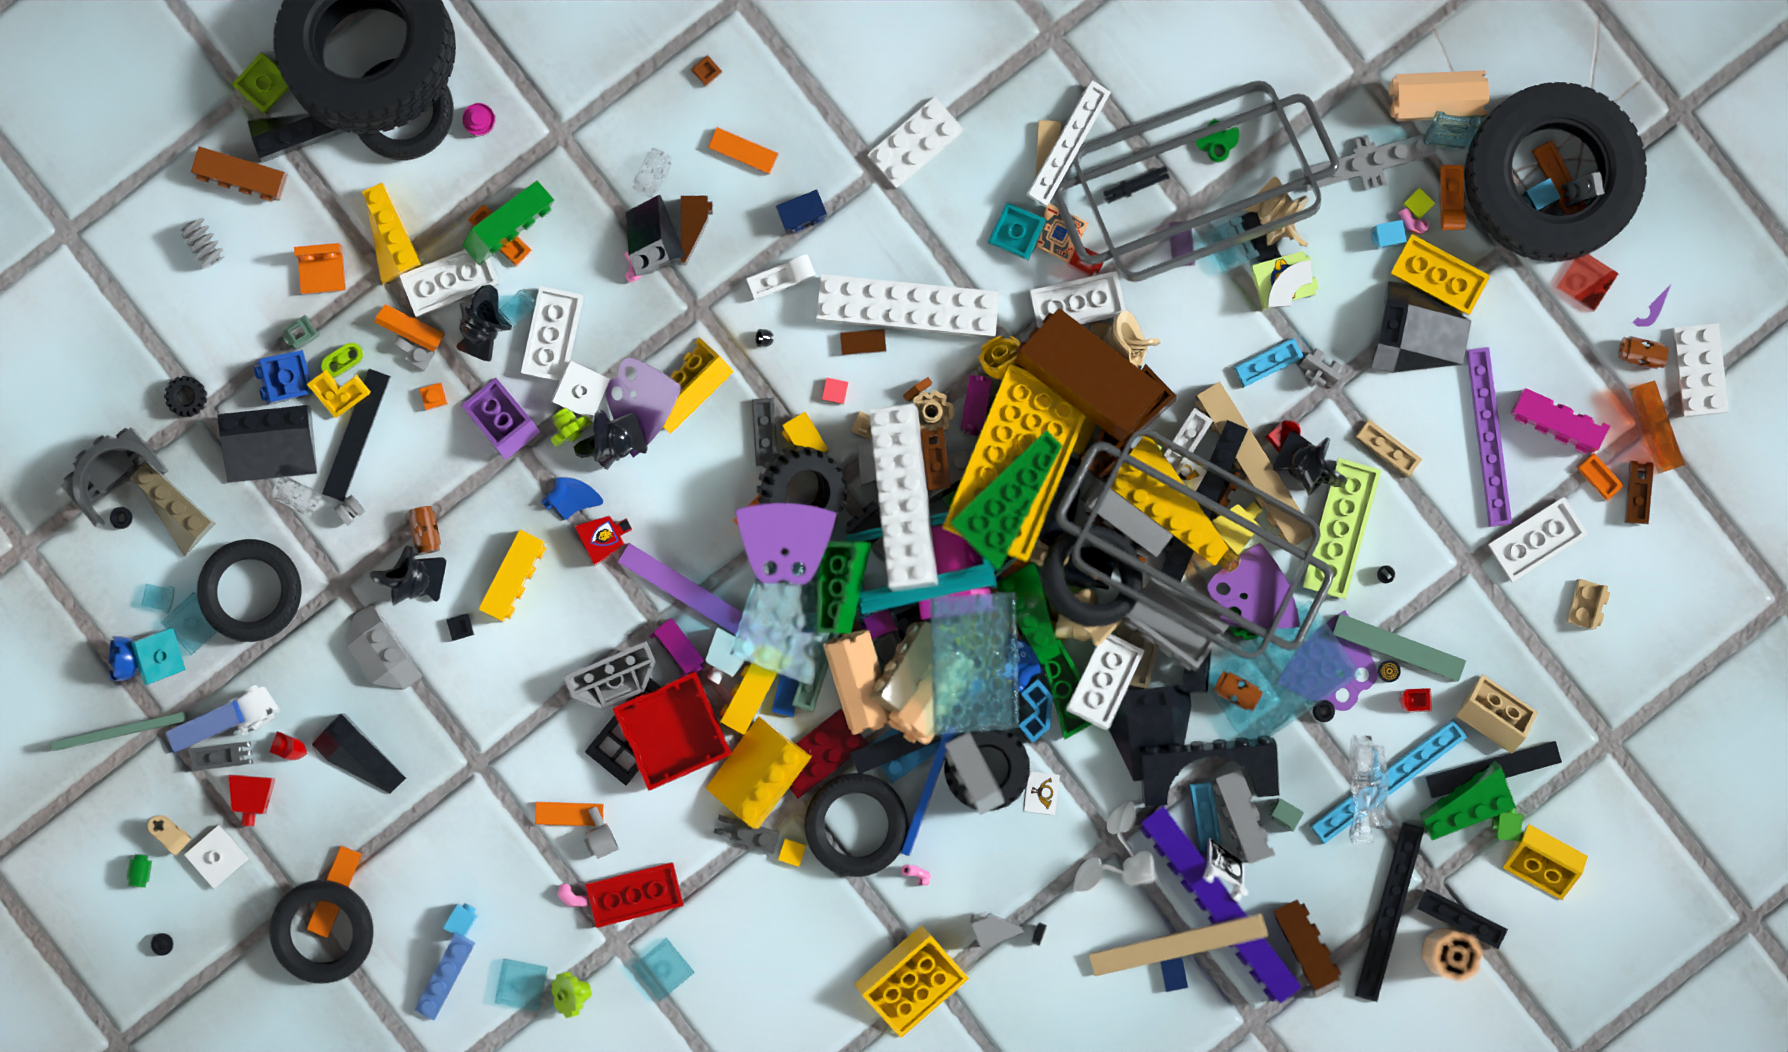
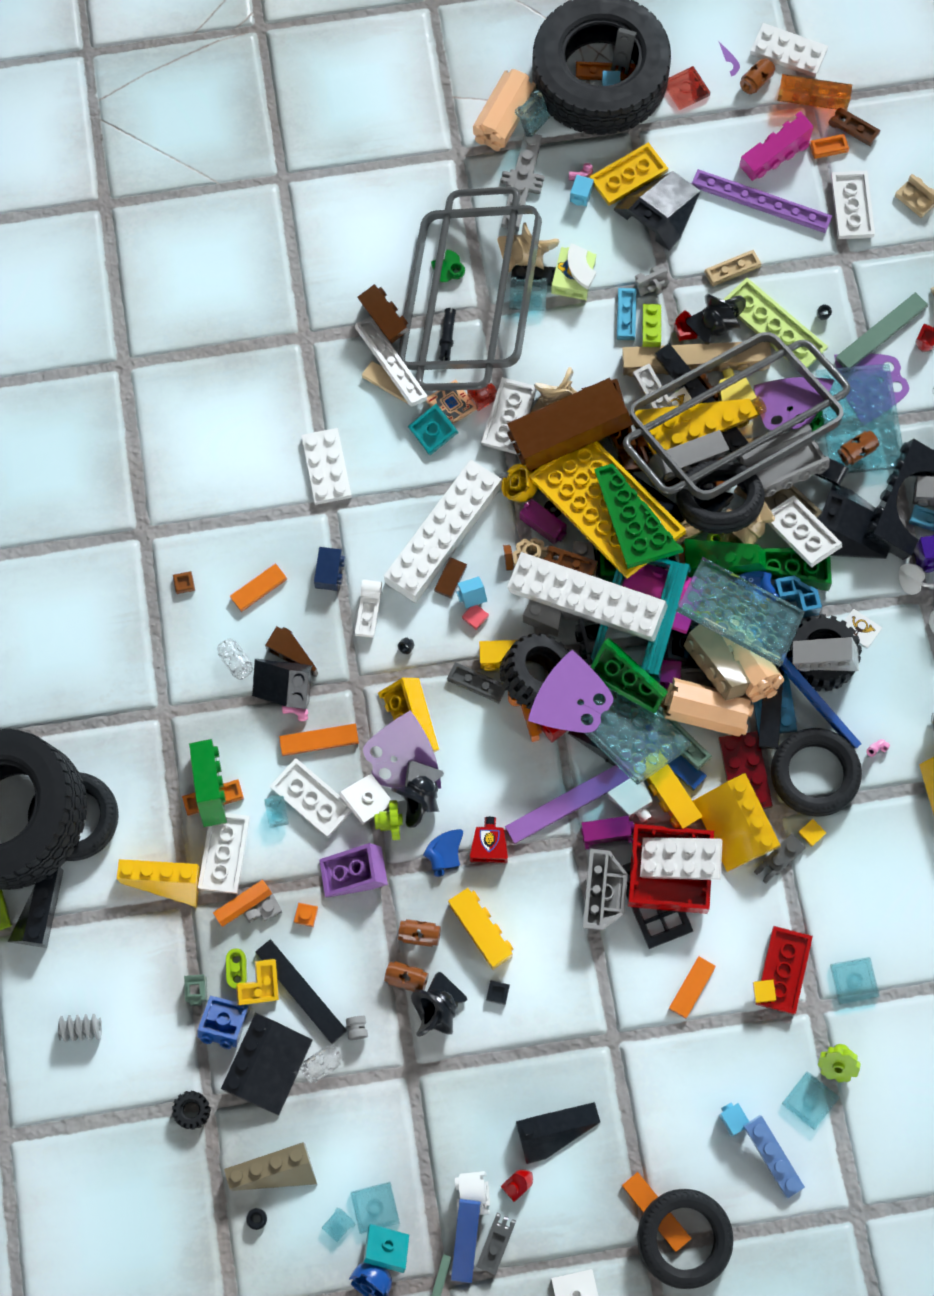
camera: 55 degrees left, 15 degrees down
(105, 467) = (208, 1202): dark grey piece -> none
(224, 558) = (401, 1169): black tyre -> none
(238, 173) = (43, 969): dark orange brick -> none
(250, 796) = (542, 1237): red torso -> none
(321, 268) = (155, 946): orange bracket -> none
(380, 651) = (481, 1065): light grey wedge -> none
(478, 528) = (409, 935): none -> dark orange piece
(479, 119) = (116, 764): dark pink plate -> none
(481, 323) = (273, 845): black helmet -> none
(570, 899) = (760, 1023): bright pink arm -> none
(600, 840) = (727, 971): light grey piece -> none
(600, 886) = (764, 991): none -> yellow tile
(617, 306) = (319, 739): none -> orange tile
(686, 736) = (681, 858): none -> white plate
(855, 373) = (471, 592): none -> medium azure brick
(862, 426) = (513, 608): tan tile -> none
(1116, 105) = (383, 313): none -> reddish brown wedge
(1181, 243) = (508, 327): clear purple tile -> none
(1265, 397) = (651, 325): none -> lime plate
(1330, 714) = (903, 399): black plate -> none
(1389, 671) = (895, 346): black tile -> none
(1419, 203) = (570, 163): neon yellow tile -> none
(1452, 197) = (579, 140): orange plate -> none

